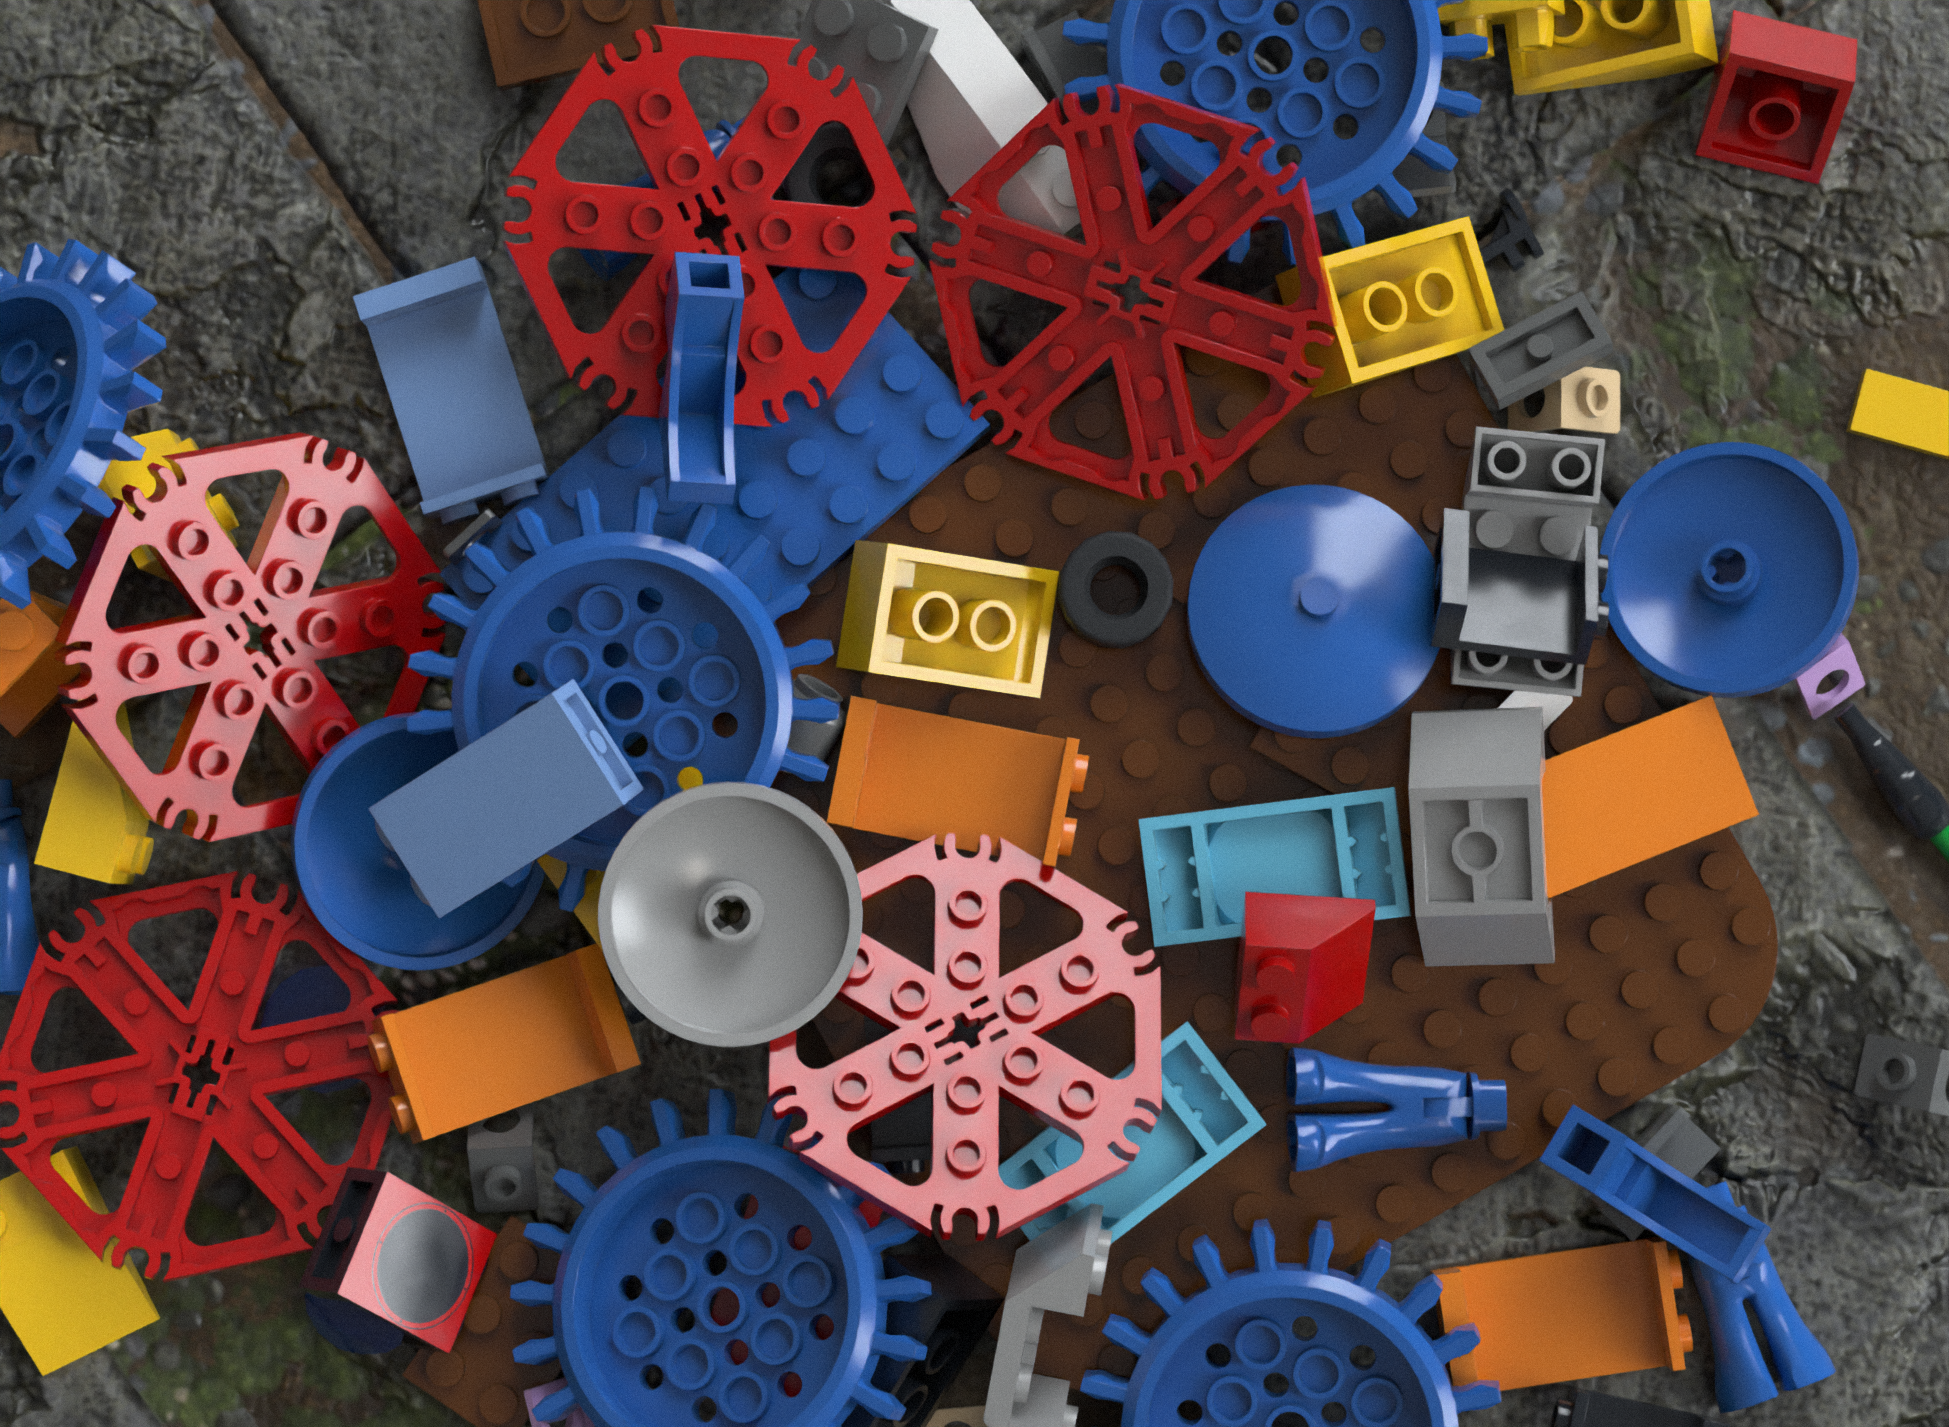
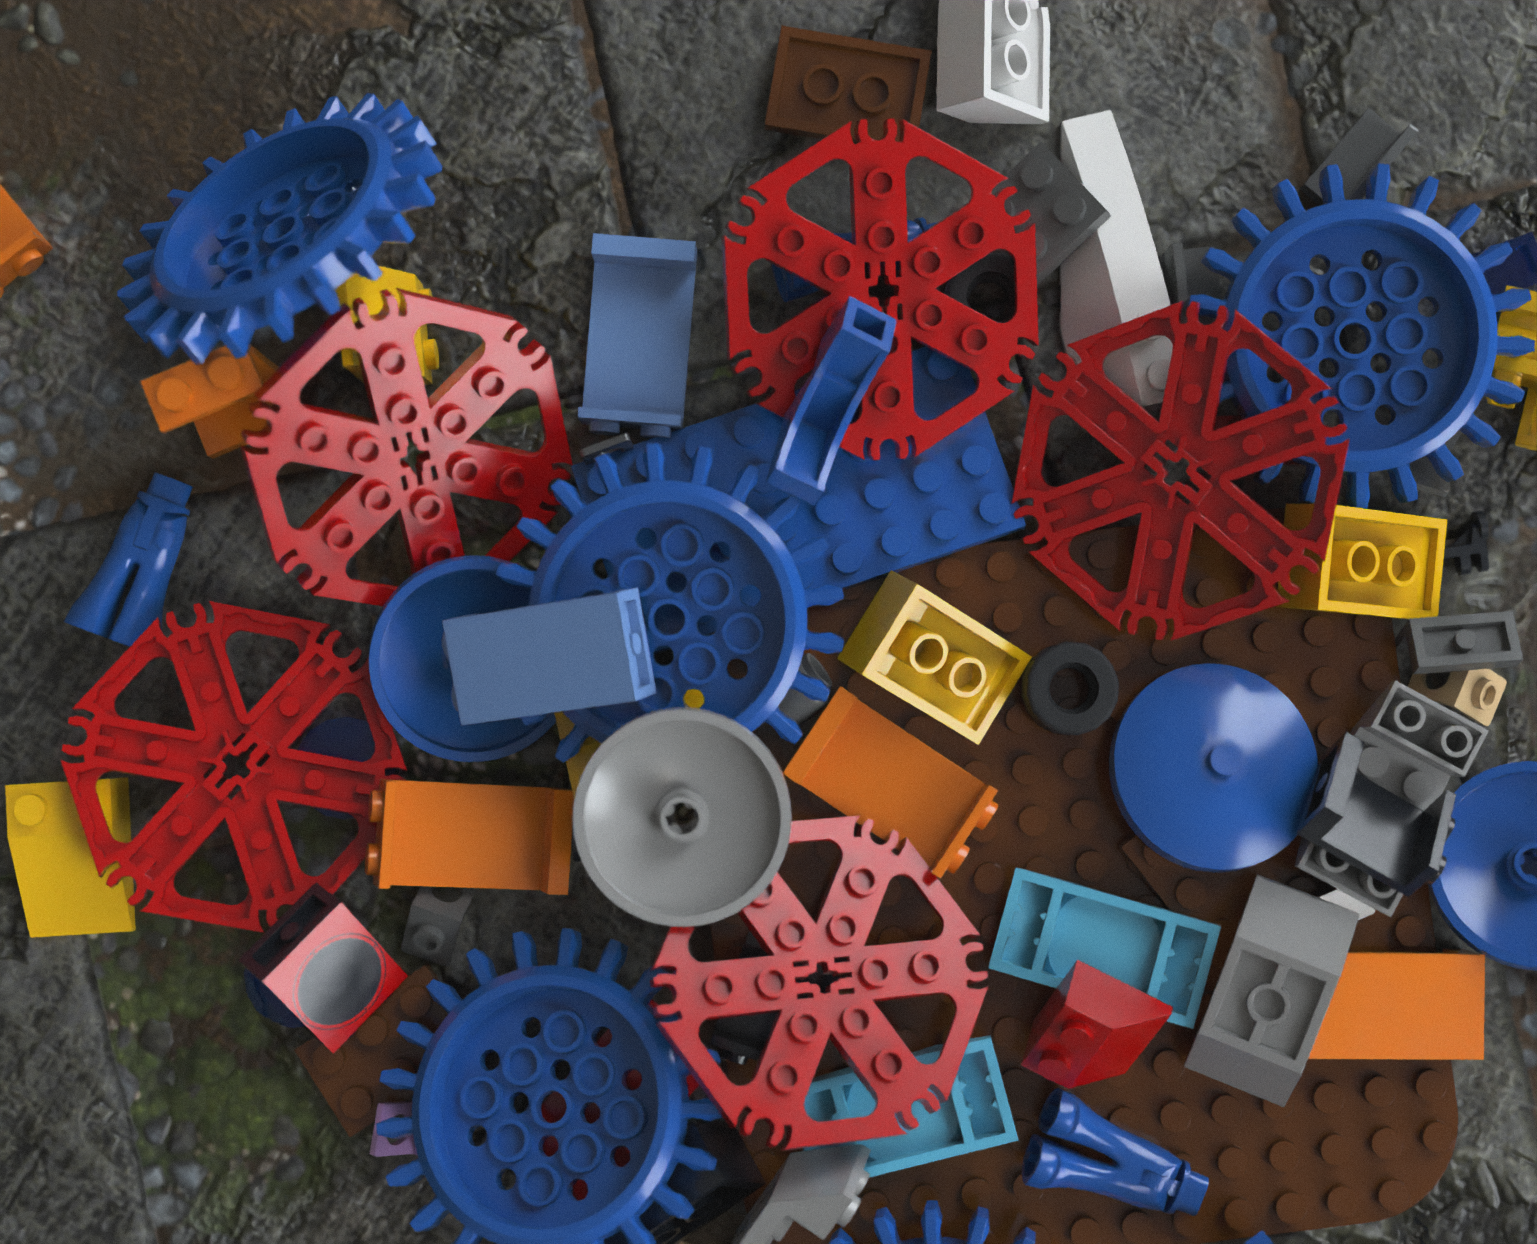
camera: 20 degrees right, 0 degrees up
(92, 820) = (231, 543): yellow slope -> none

